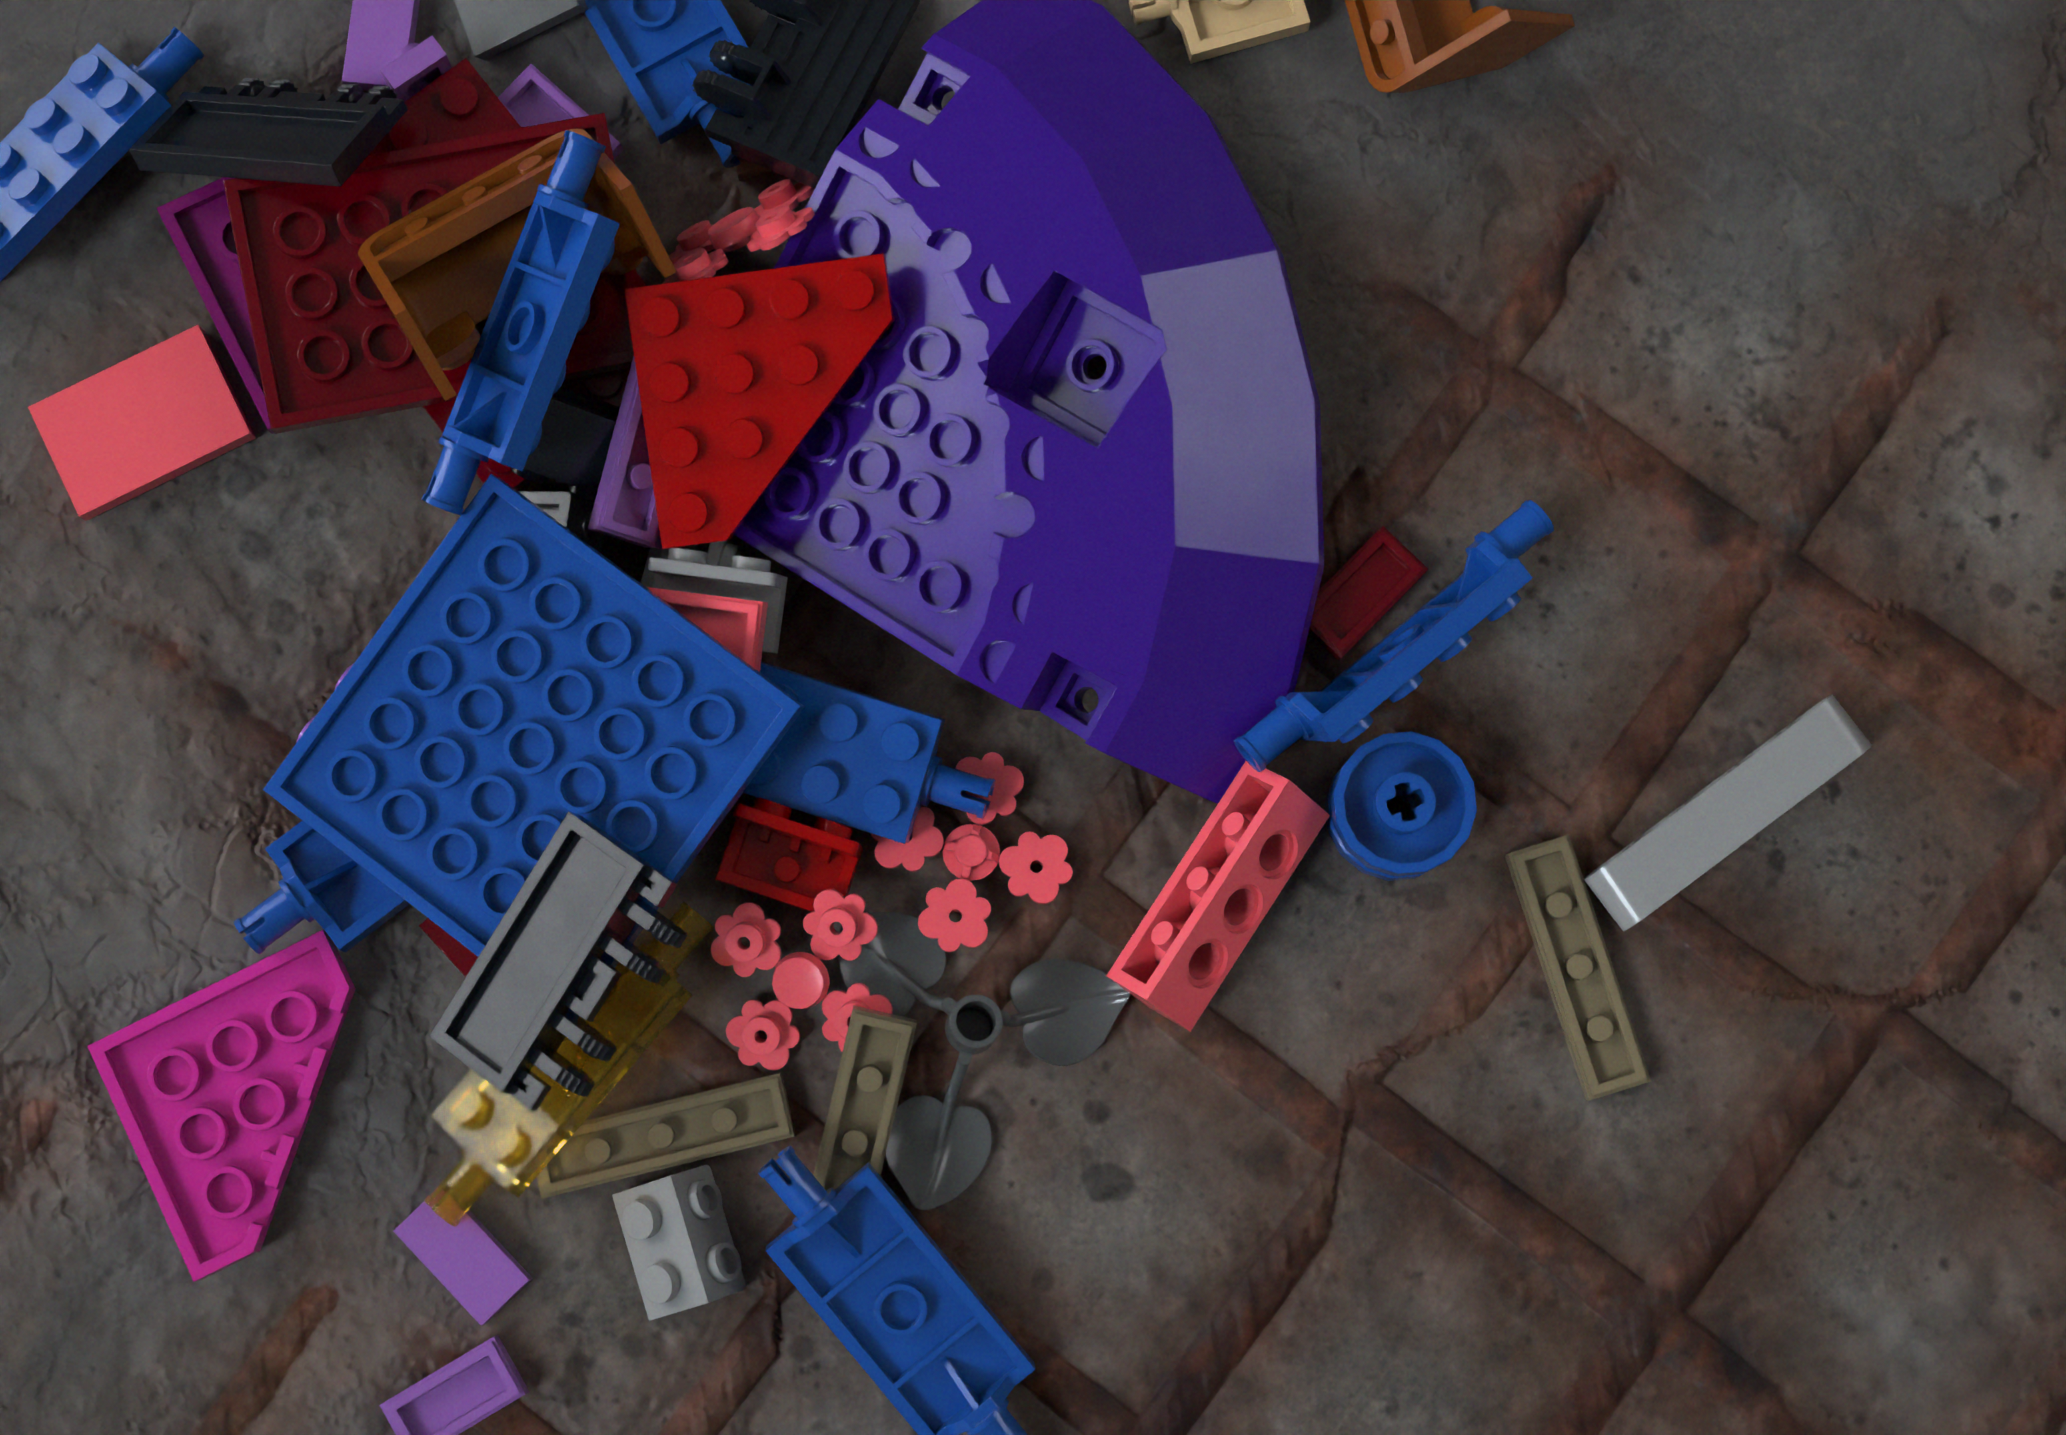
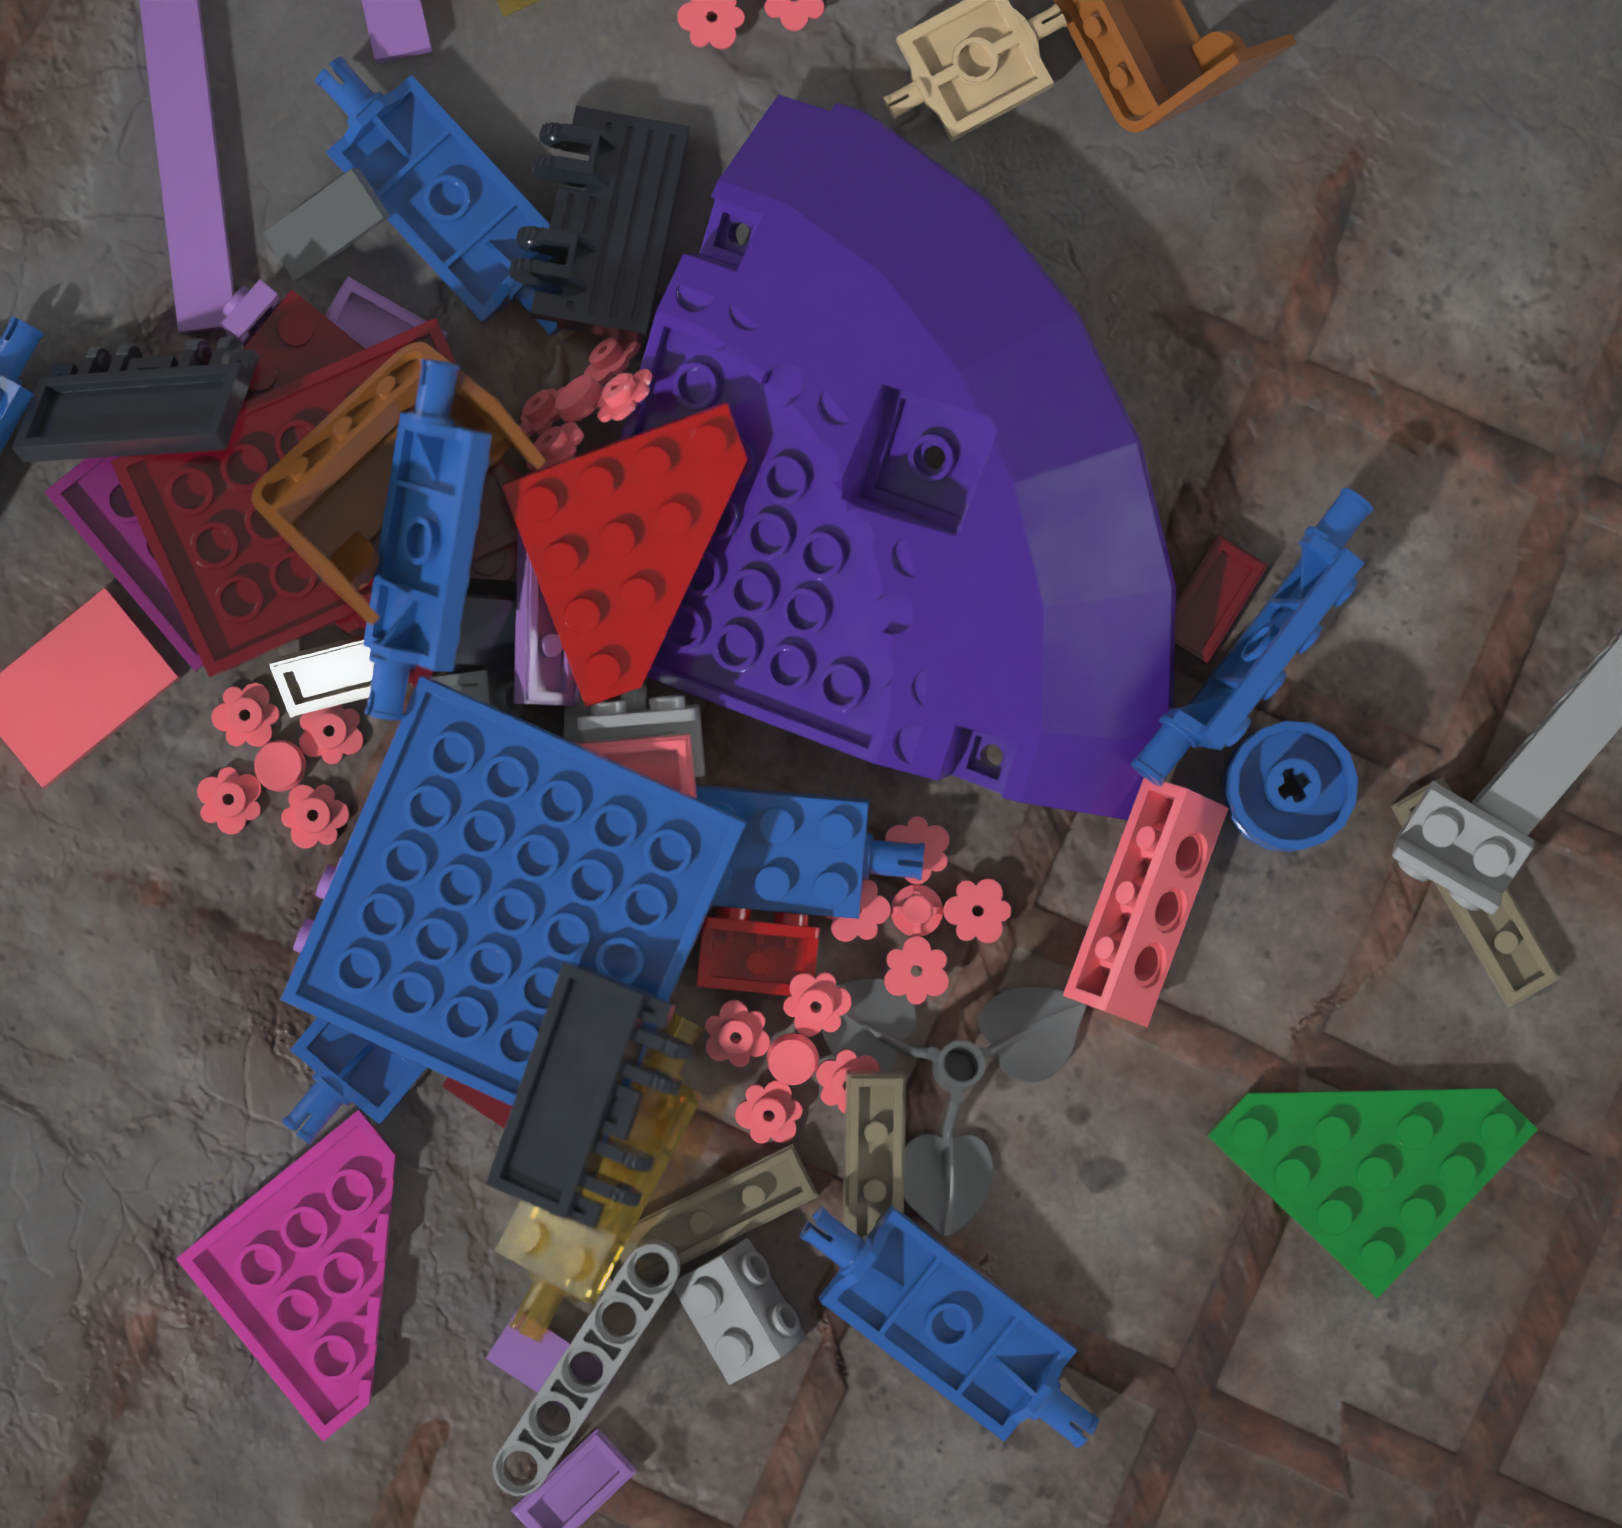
camera: 15 degrees left, 5 degrees up
(335, 550) = (279, 766): none -> coral plant
(395, 463) = (324, 675): none -> tile
(469, 1283) = (581, 1395): none -> light grey beam
(1402, 1241) = (1372, 1168): none -> green plate
(1572, 914) = (1461, 849): none -> light grey bracket

